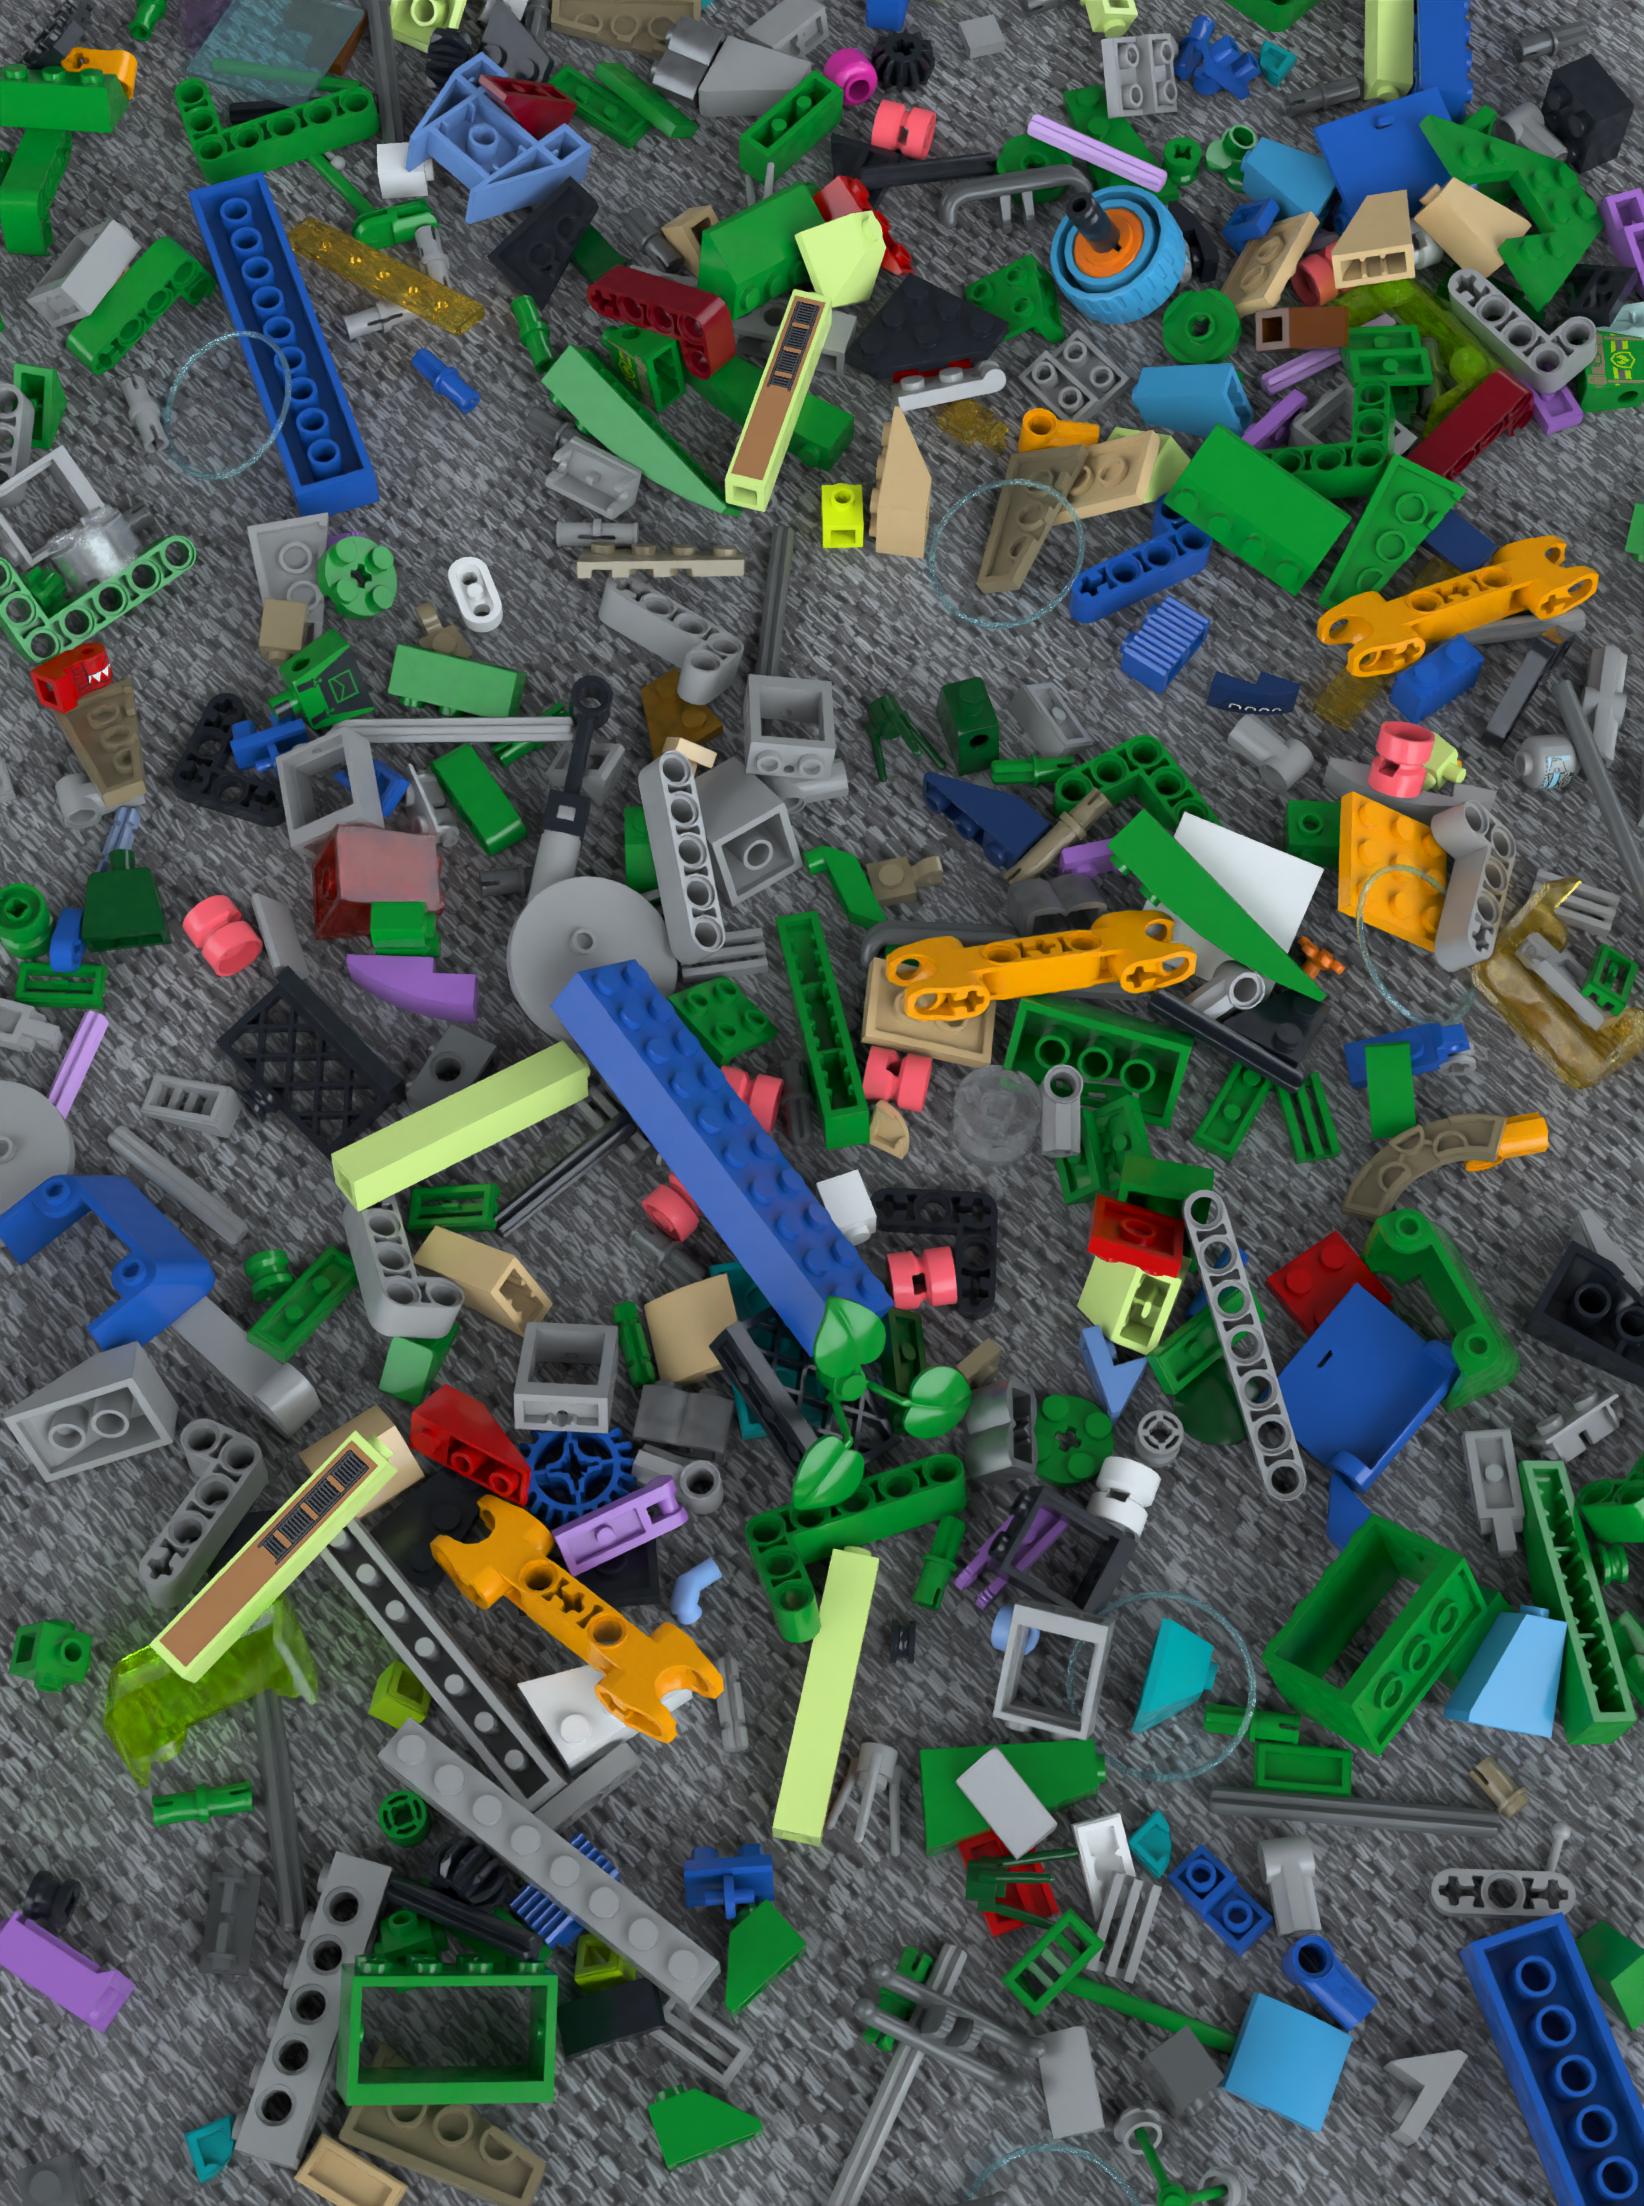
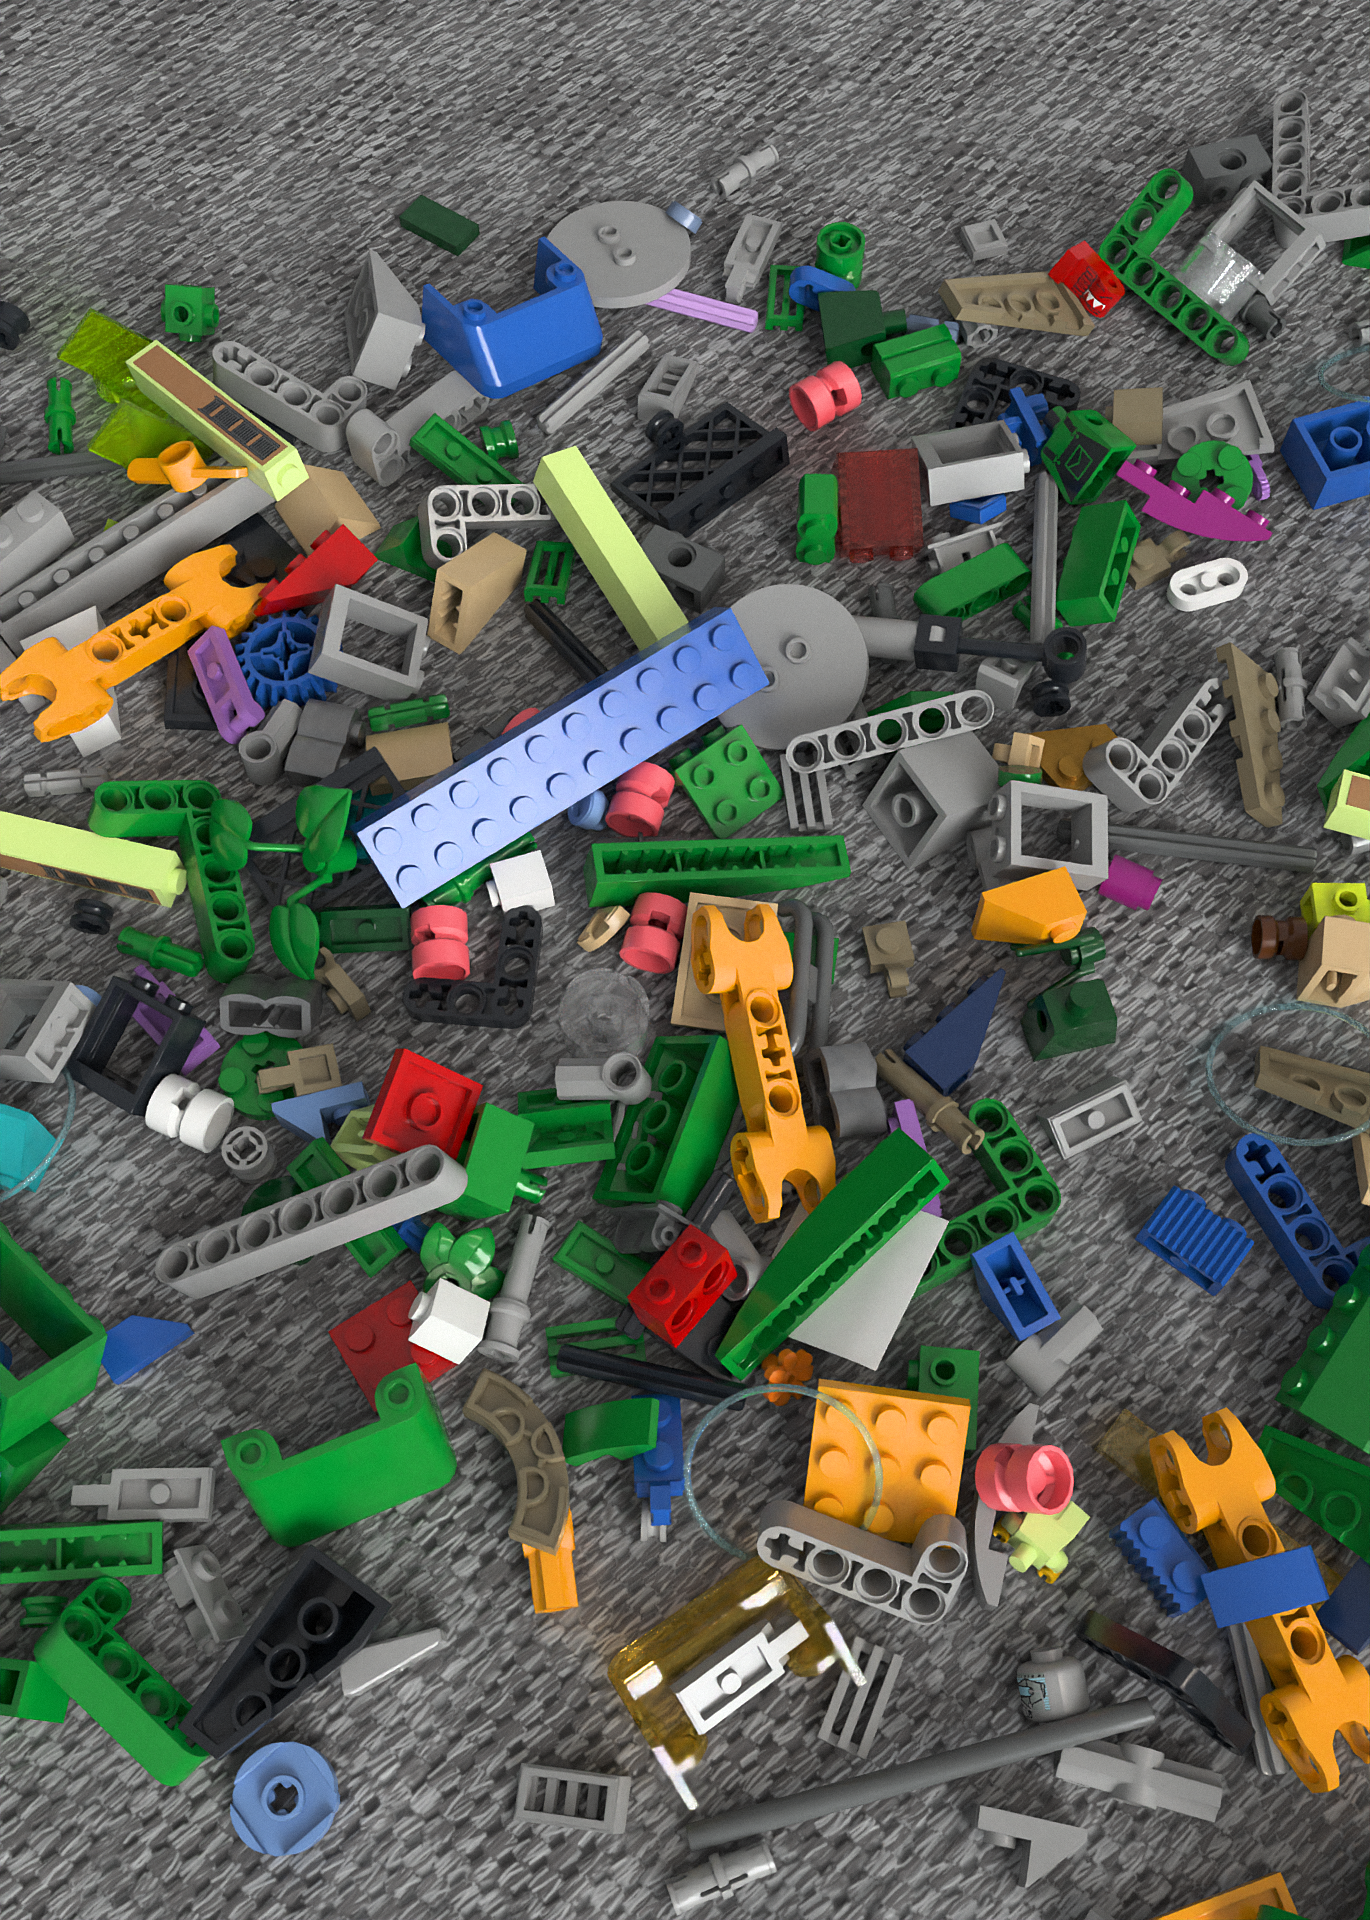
camera: 95 degrees right, 0 degrees up
(45, 587) = (1174, 250): green gear -> none
(174, 847) = (916, 362): none -> green brick
(279, 935) = (821, 438): light grey slope -> none
(339, 1614) = (180, 467): none -> light orange piece
(402, 591) = (1207, 516): none -> magenta slope
(417, 986) = (771, 540): medium lavender slope -> none
(614, 731) = (1050, 699): none -> black bush
(688, 1588) = (174, 749): light blue arm -> none
(727, 748) = (1019, 773): none -> green tile
(824, 665) = (1129, 884): none -> magenta brick
(848, 883) = (882, 904): green piece -> none
(868, 742) = (1031, 910): none -> light orange slope
(870, 562) = (1279, 937): none -> reddish brown wheel
(1030, 770) = (1022, 1086): green axle -> none
(1076, 1383) = (307, 1072): none -> dark tan plate
(1215, 1041) = (648, 1226): none -> dark grey hinge
(1230, 775) = (1012, 1287): none -> blue slope
(1256, 1236) = (461, 1259): none -> green plate
(1266, 697) = (1130, 1345): dark blue slope -> none
(1268, 1019) = (682, 1285): none -> red brick
(1284, 1188) = (510, 1309): none -> light grey pin
(1309, 1229) = (448, 1320): none -> white brick
(1336, 1063) = (648, 1376): none -> black axle
(1367, 1393) = (266, 1367): blue door -> none
(1466, 593) = (1264, 1586): none -> blue slope
(1603, 990) = (710, 1700): green tile -> none

